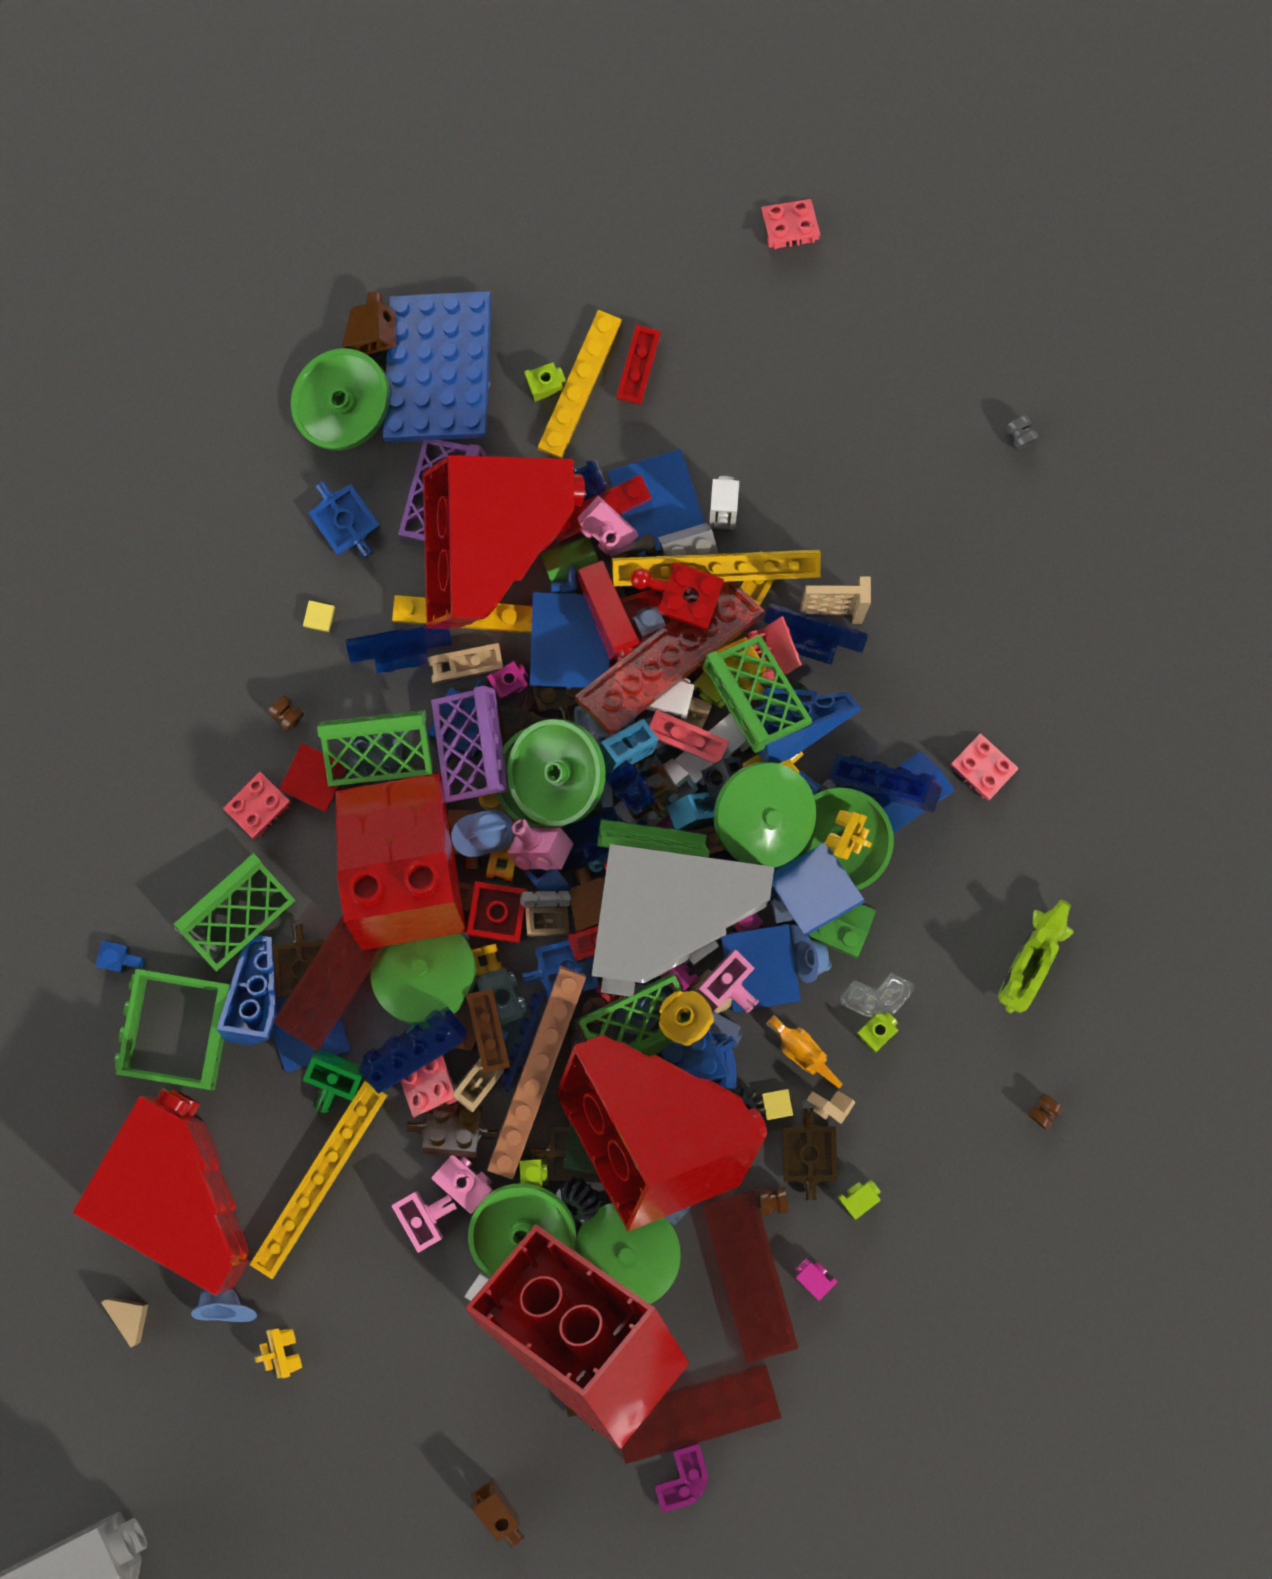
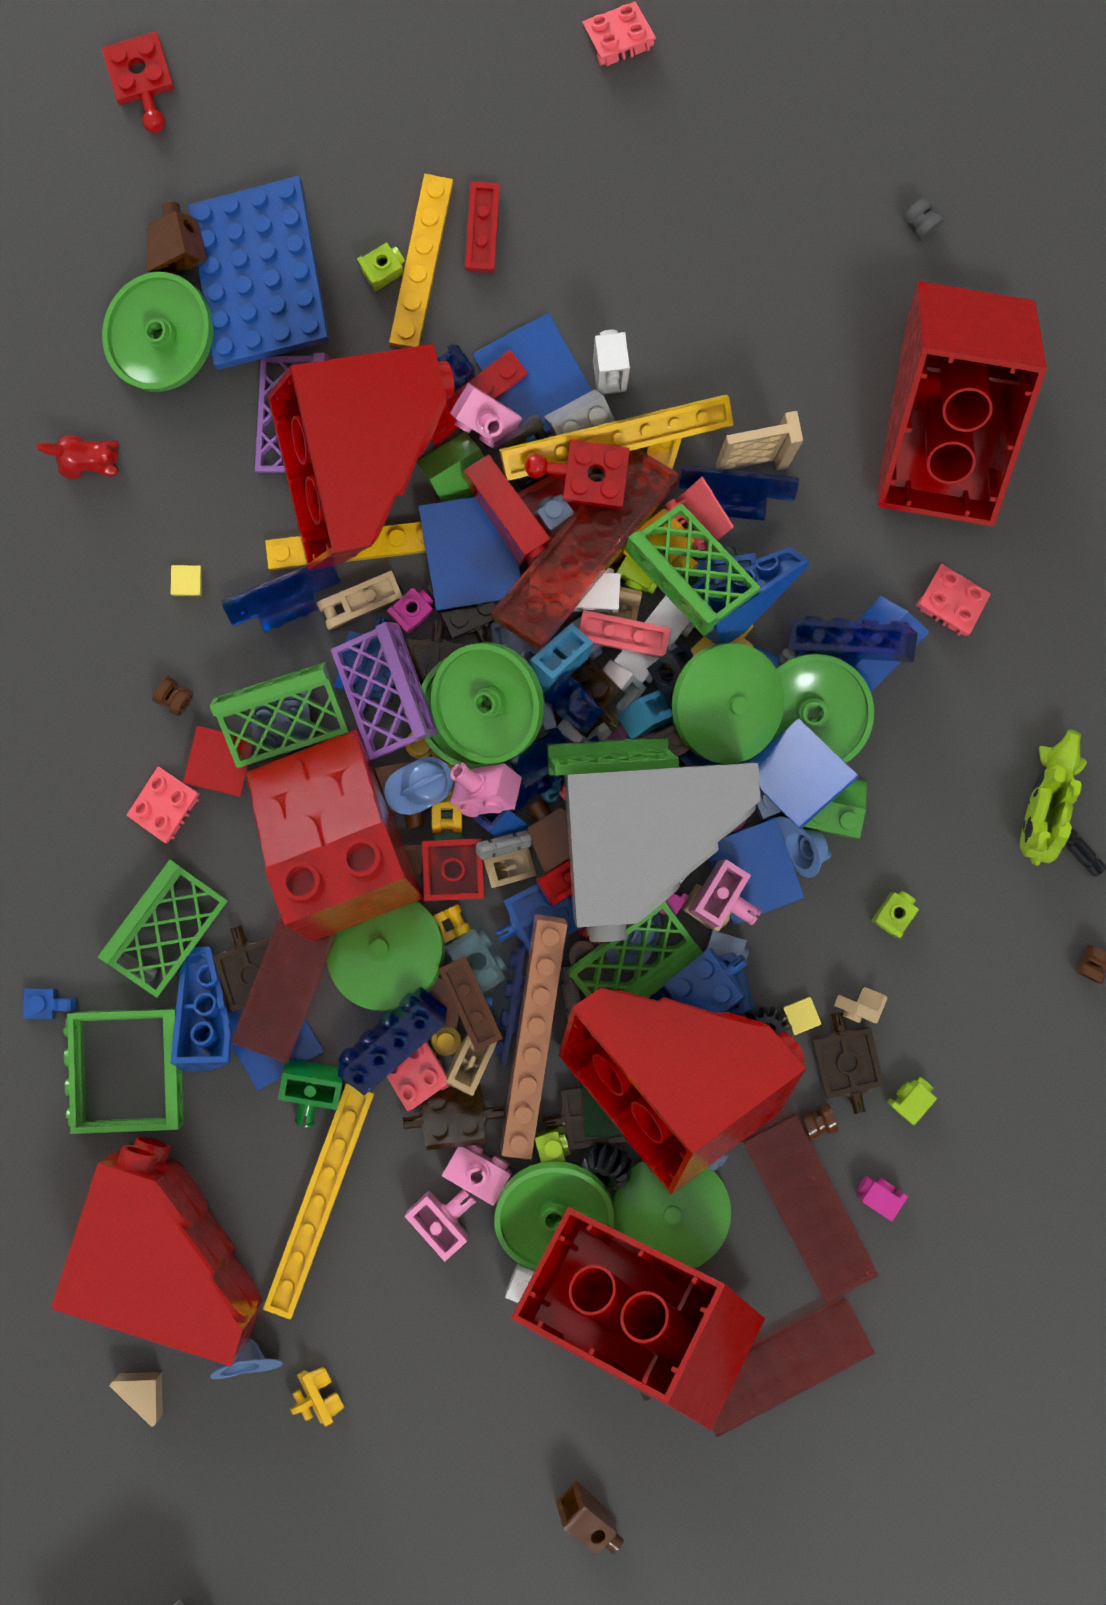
camera: 15 degrees left, 5 degrees up
(249, 490) = (77, 455): none -> red animal
(344, 519) = (191, 466): blue plate -> none
(381, 186) = (142, 86): none -> red plate
(459, 1061) = (446, 1041): none -> yellow plate
(566, 586) = (452, 492): blue animal -> none
(690, 1484) = (790, 1446): magenta plate -> none
(698, 1024) = (669, 949): yellow plate -> none
(802, 1050) = (817, 951): light orange animal -> none
(853, 836) = (827, 693): yellow hips -> none
(869, 1001) = (897, 879): clear plate -> none
(1018, 598) = (960, 402): none -> red slope
(1054, 1010) = (1085, 854): none -> black axle

